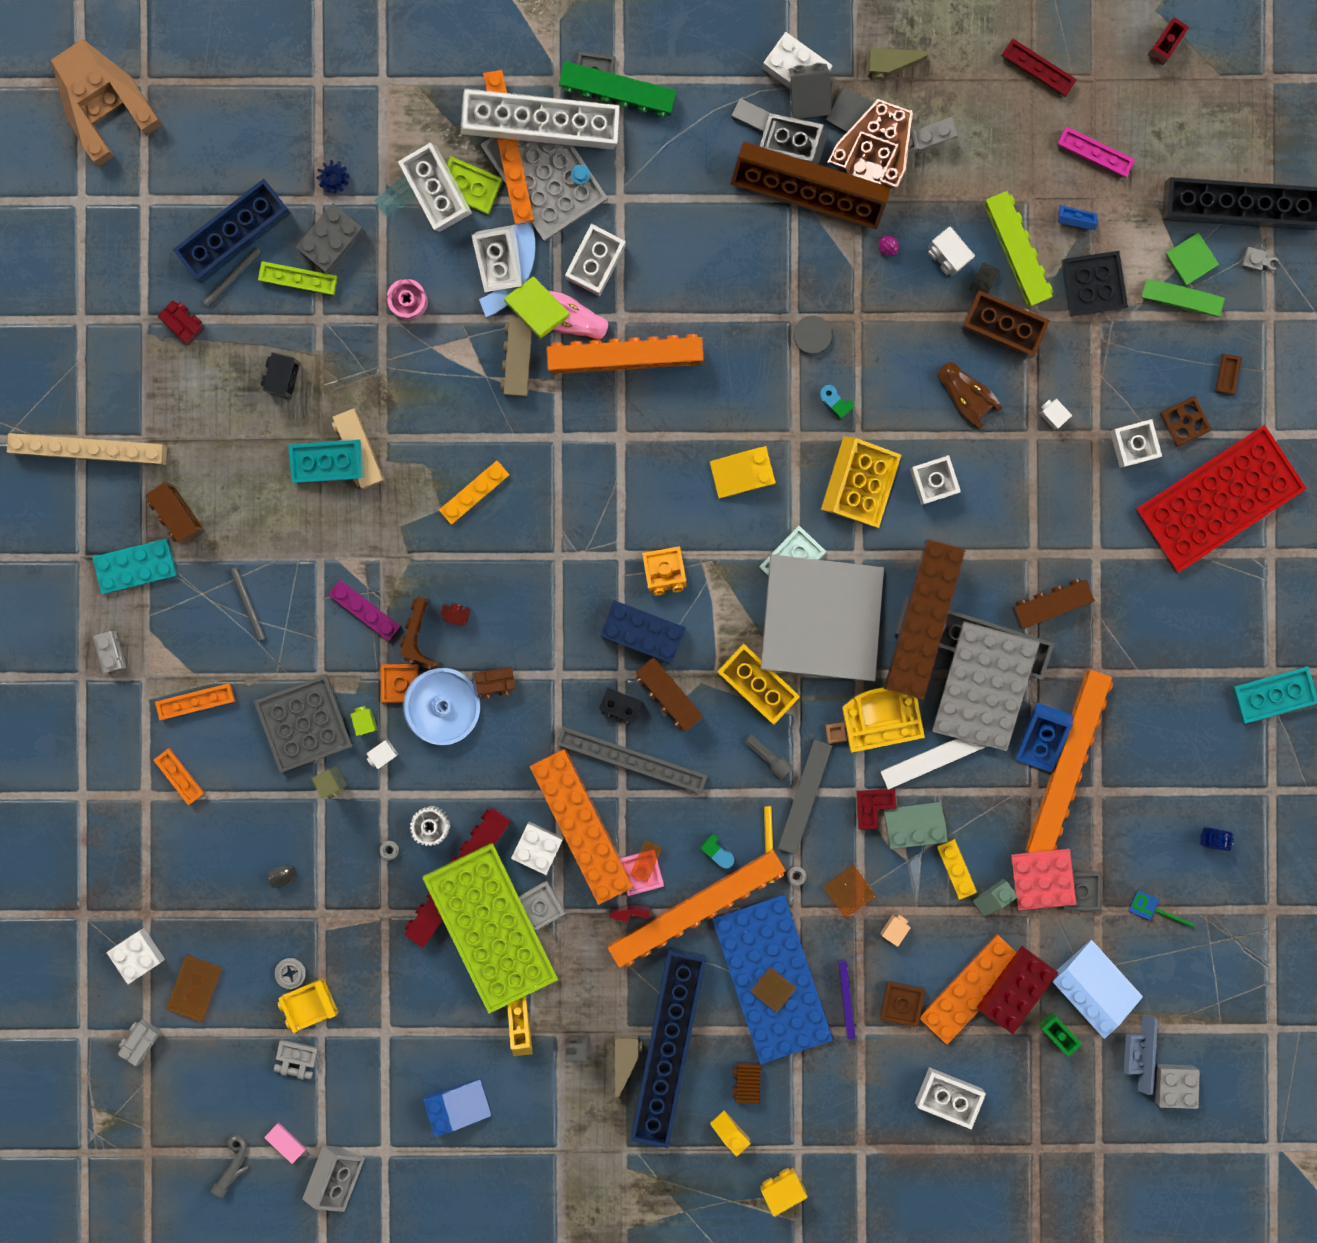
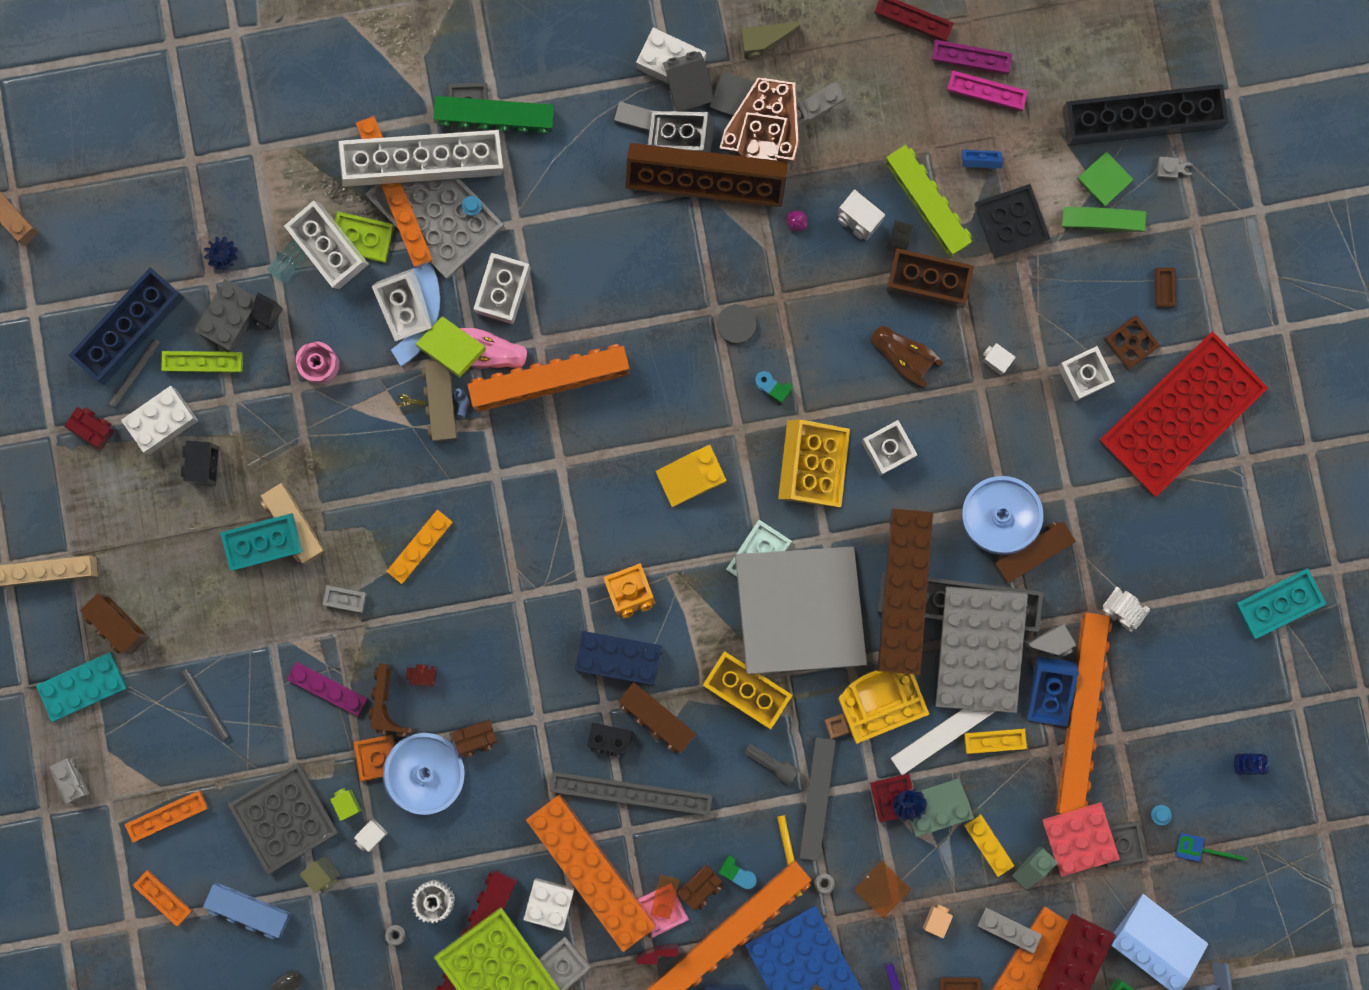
camera: 15 degrees left, 5 degrees down
(248, 327) = (159, 420): none -> white brick
(256, 802) = (246, 910): none -> medium blue brick
(366, 241) = (265, 311): none -> black slope
(395, 529) = (344, 599): none -> light grey plate
(486, 351) = (407, 400): none -> clear yellow hand
(538, 363) = (462, 402): none -> medium blue arm
(680, 858) = (700, 887): none -> reddish brown brick
(890, 818) = (909, 804): none -> clear blue gear
(960, 950) = (1009, 930): none -> light grey plate
(981, 773) = (995, 741): none -> yellow plate
(1030, 563) = (1002, 515): none -> light blue dish
(1054, 691) = (1052, 642): none -> light grey slope
(1087, 116) = (971, 57): none -> magenta plate
(1123, 870) = (1161, 815): none -> dark azure plate
(1129, 673) = (1126, 609): none -> white brick

